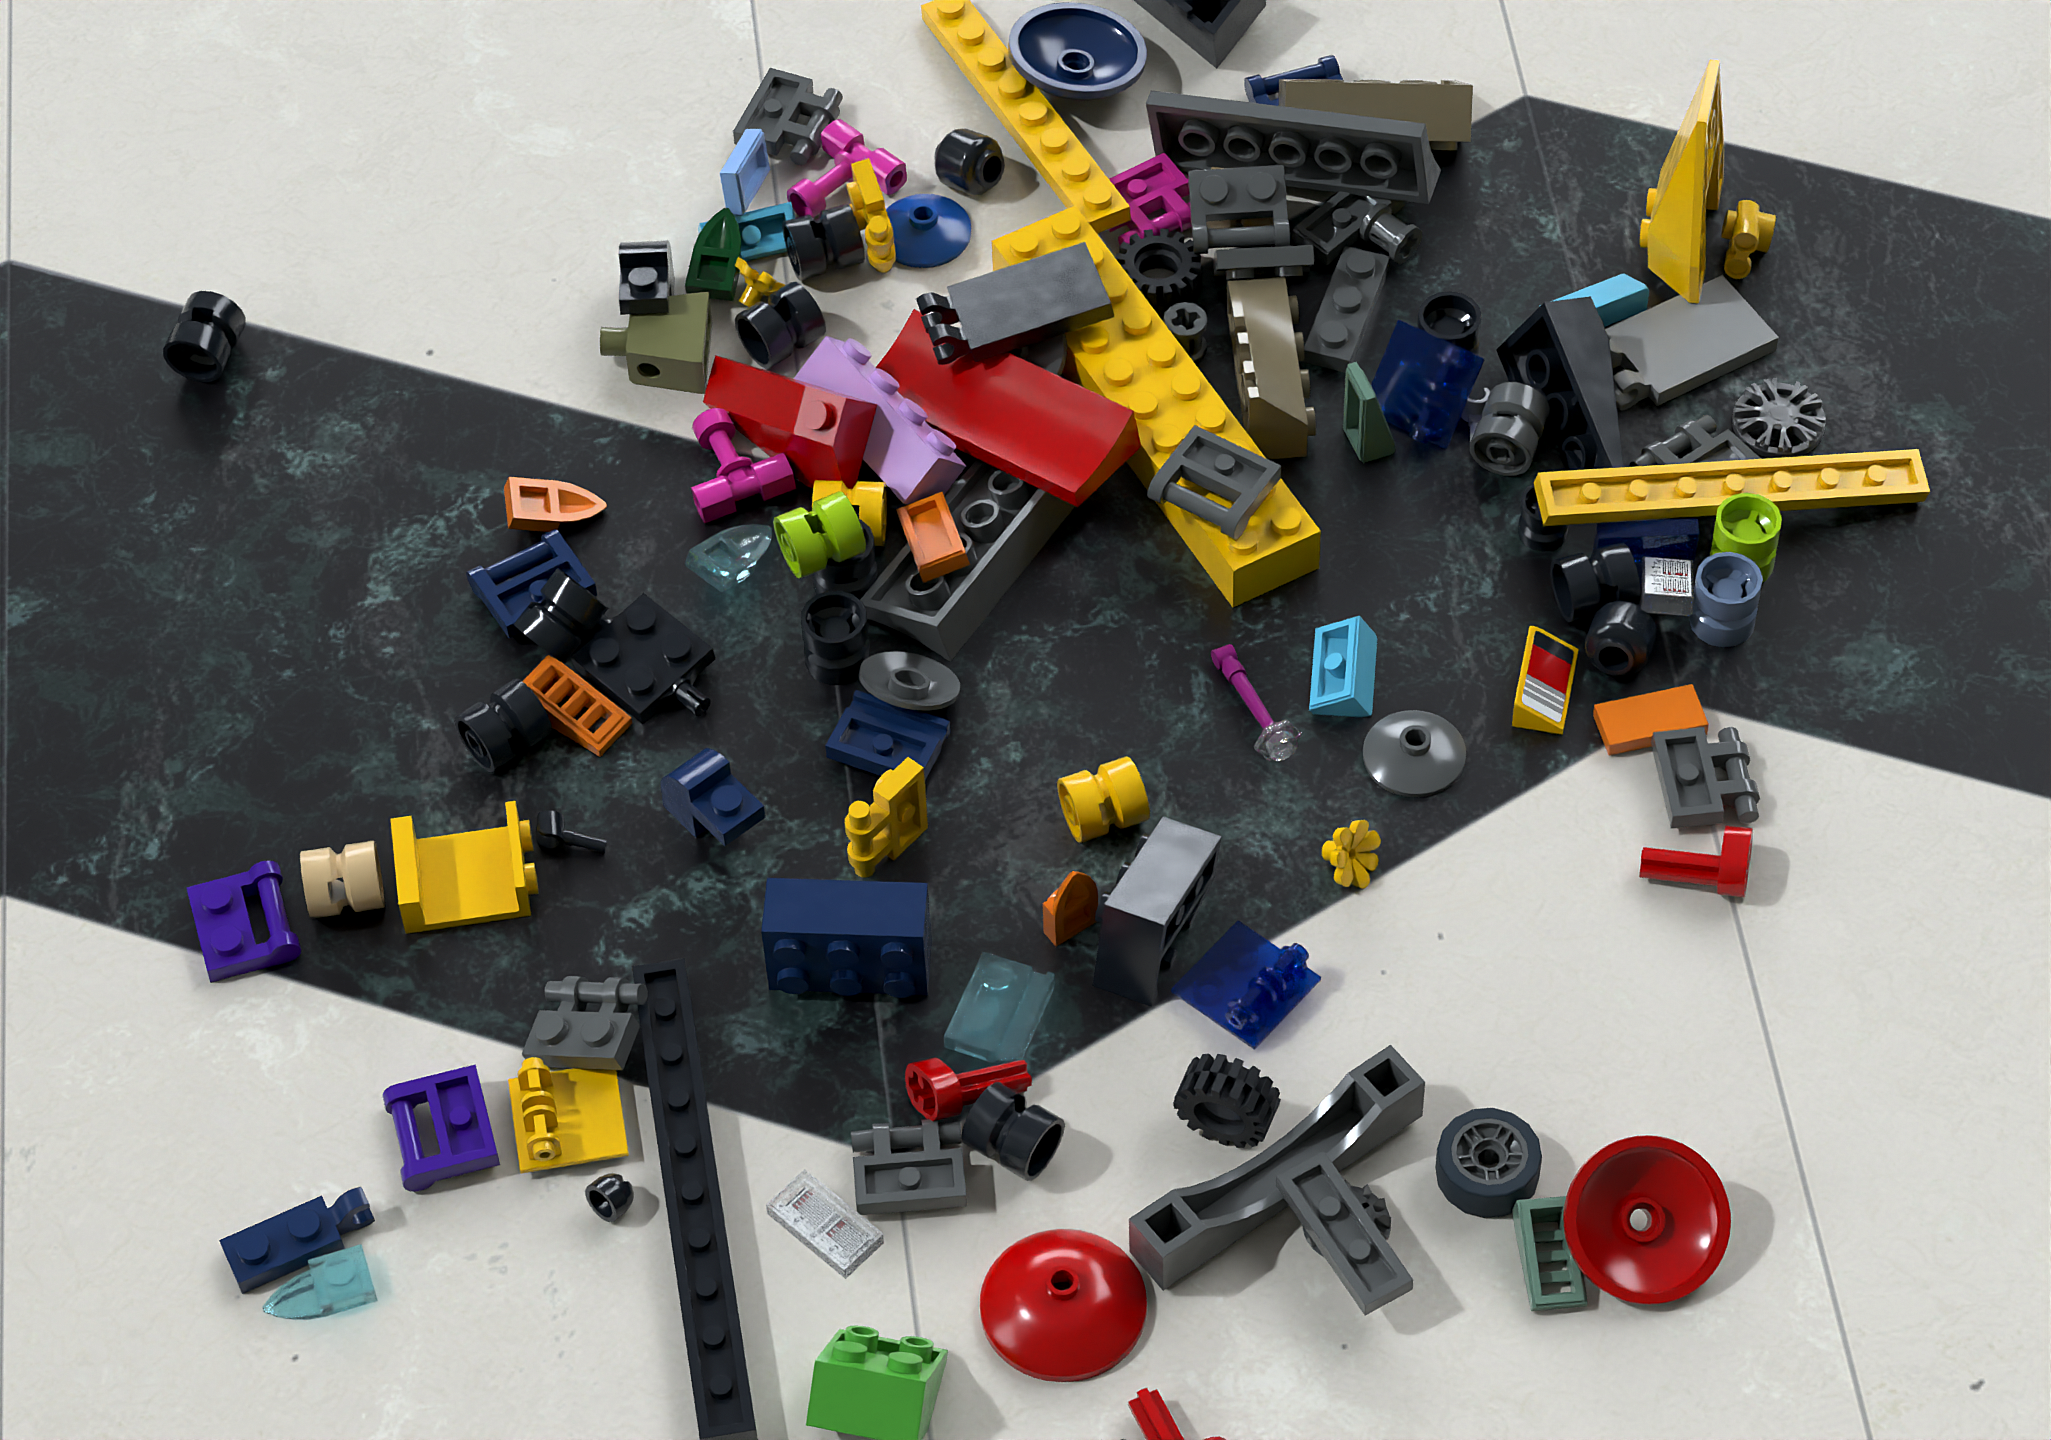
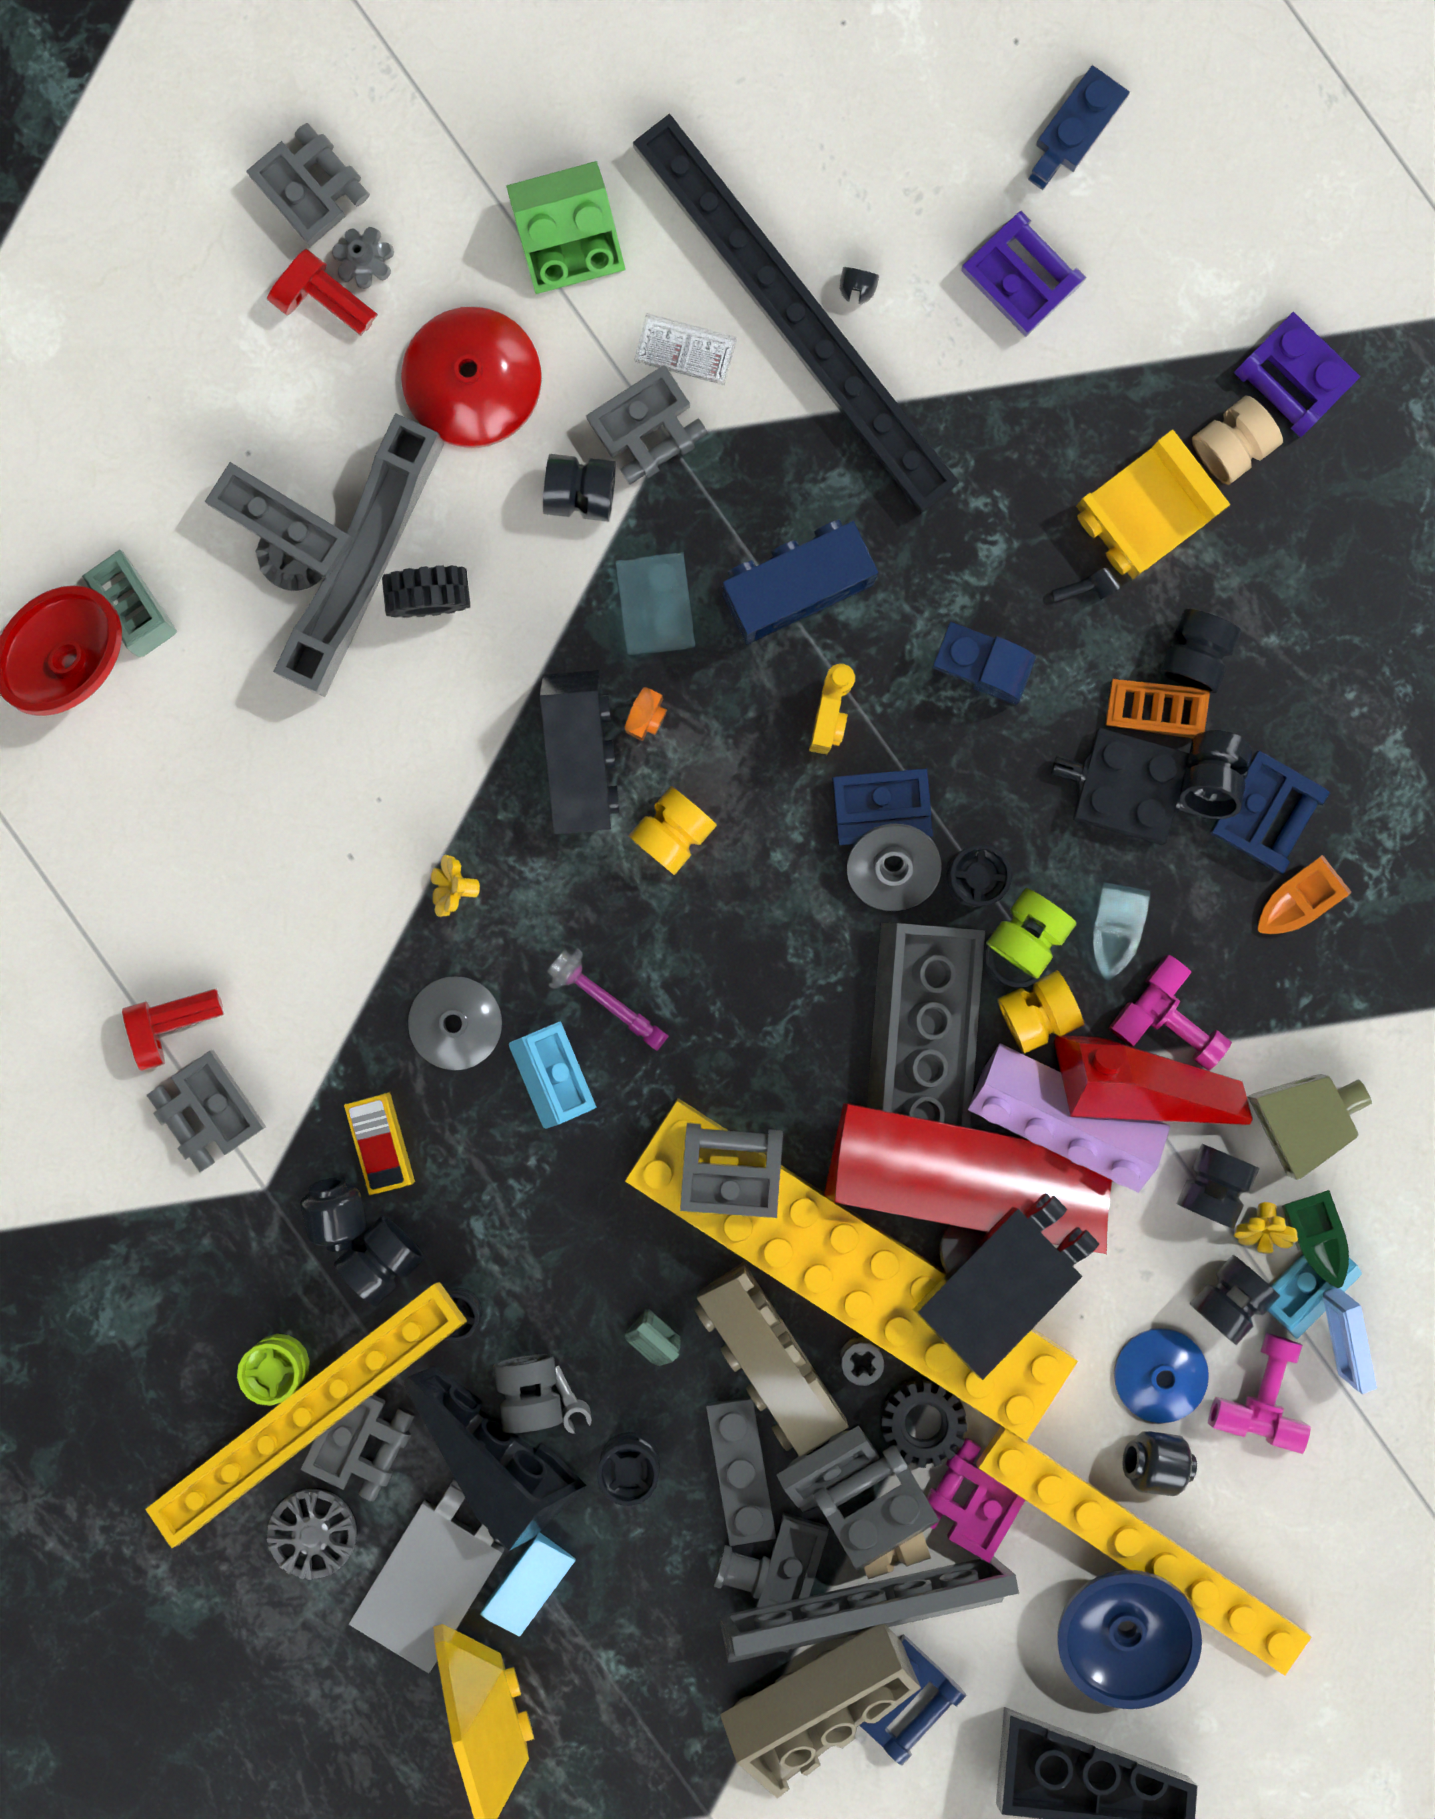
camera: 150 degrees right, 35 degrees up
(329, 1287) = (1028, 104): clear light blue plate -> none
(566, 1116) = (933, 335): yellow hinge -> none
(586, 1038) = (960, 400): dark grey plate -> none
(645, 277) = (1360, 1165): black brick -> none
(779, 105) = (1370, 1439): dark grey plate -> none
(872, 216) = (1208, 1343): yellow plate -> none
(932, 537) = (955, 1021): orange tile -> none
(942, 1093) = (647, 493): red piece -> none
(1247, 983) = (476, 725): clear blue hinge -> none
(1425, 383) = (623, 1400): clear blue hinge -> none
(1491, 1138) = (204, 631): wheel -> none
(1631, 721) = (277, 1151): orange tile -> none
(1651, 538) = (355, 1332): clear blue tile -> none
(1667, 586) = (317, 1286): tile -> none
(1726, 599) = (261, 1296): sand blue wheel -> none
(1747, 232) = (426, 1734): yellow plate -> none

